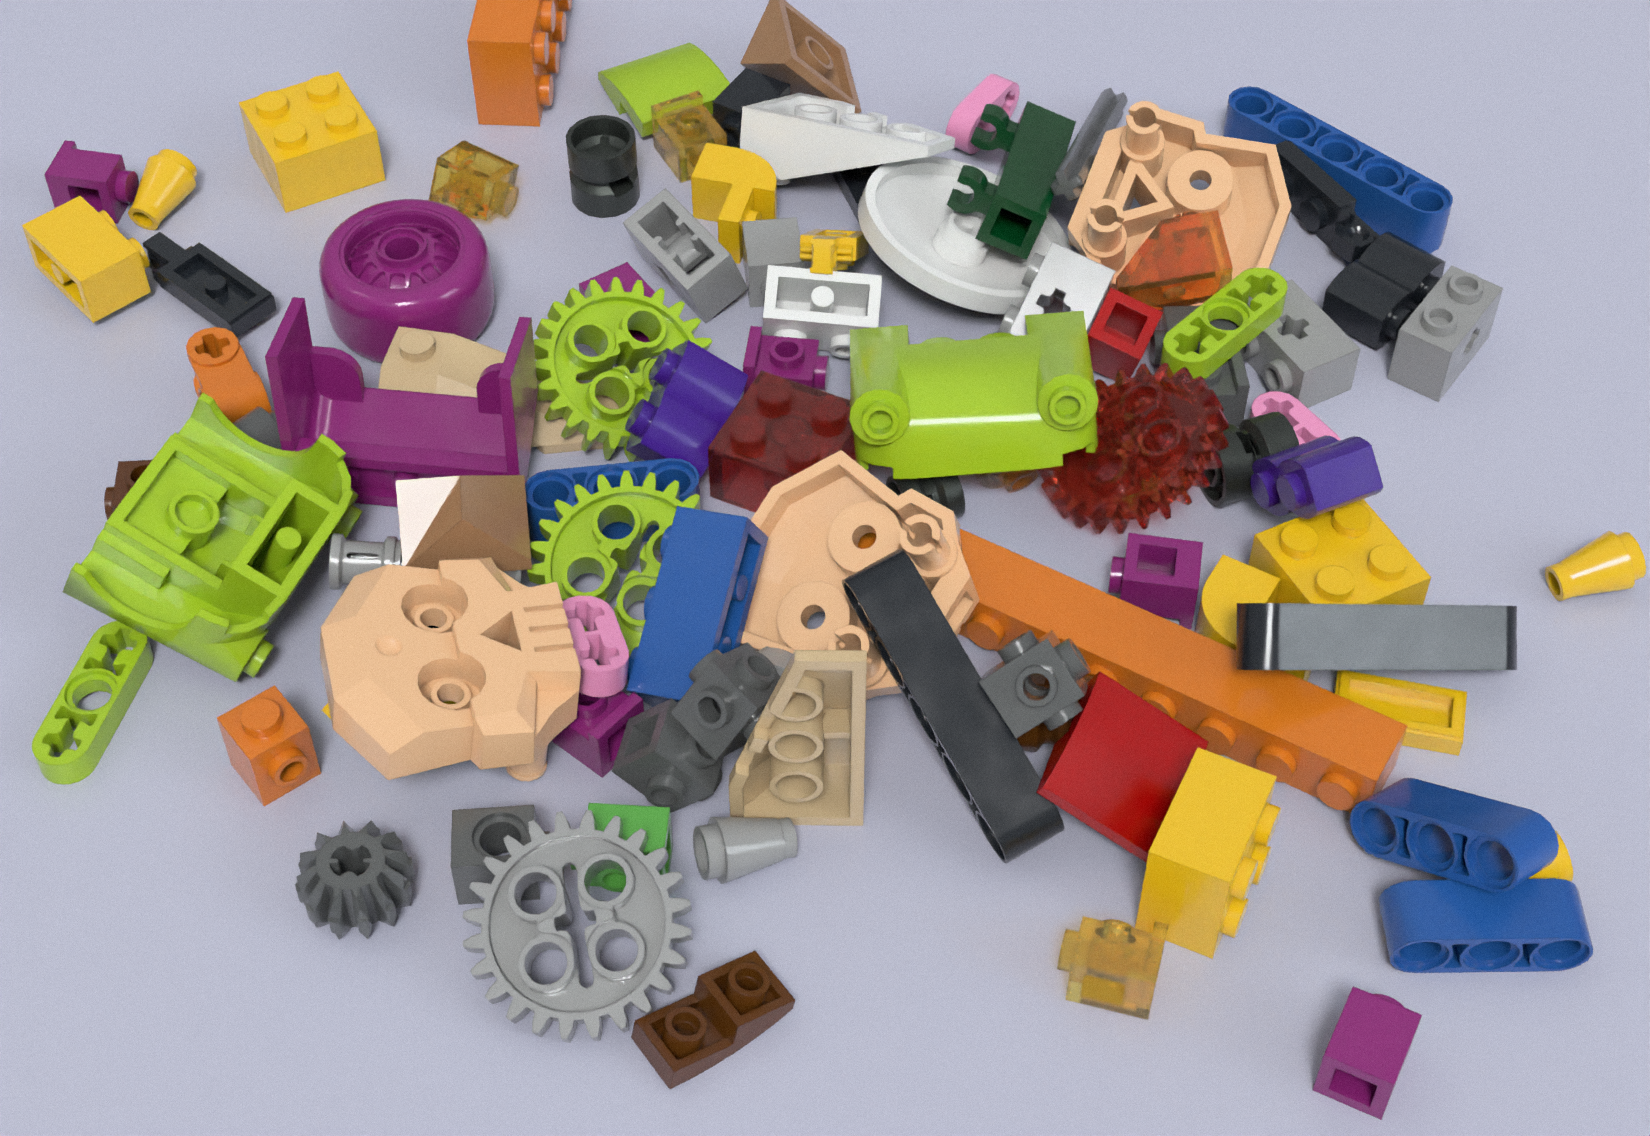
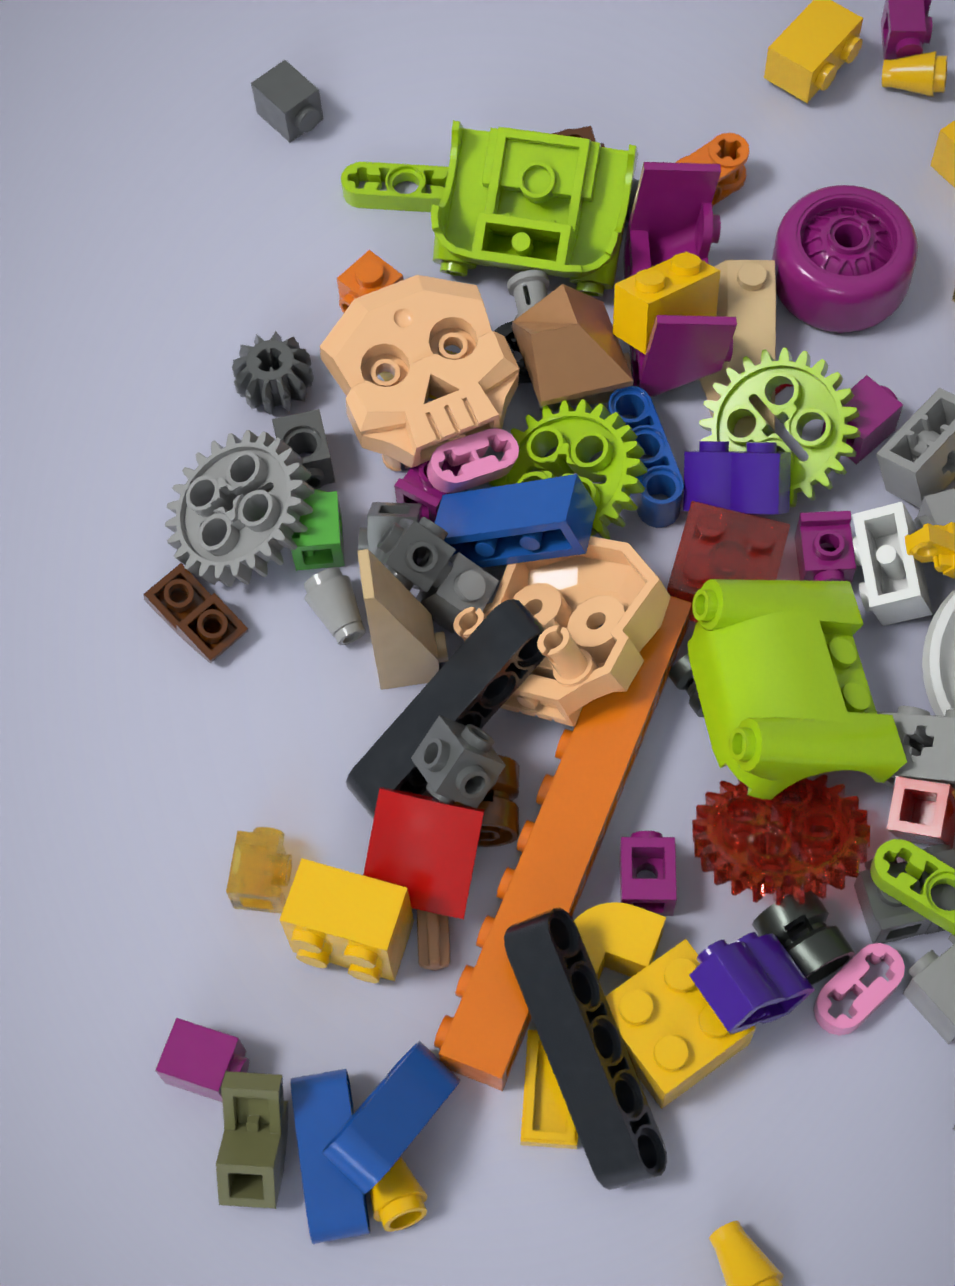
camera: 85 degrees right, 15 degrees up
(208, 284) = (816, 135): black hinge -> none
(438, 410) = (674, 287): none -> yellow brick
(1476, 1003) = (253, 1140): none -> olive brick

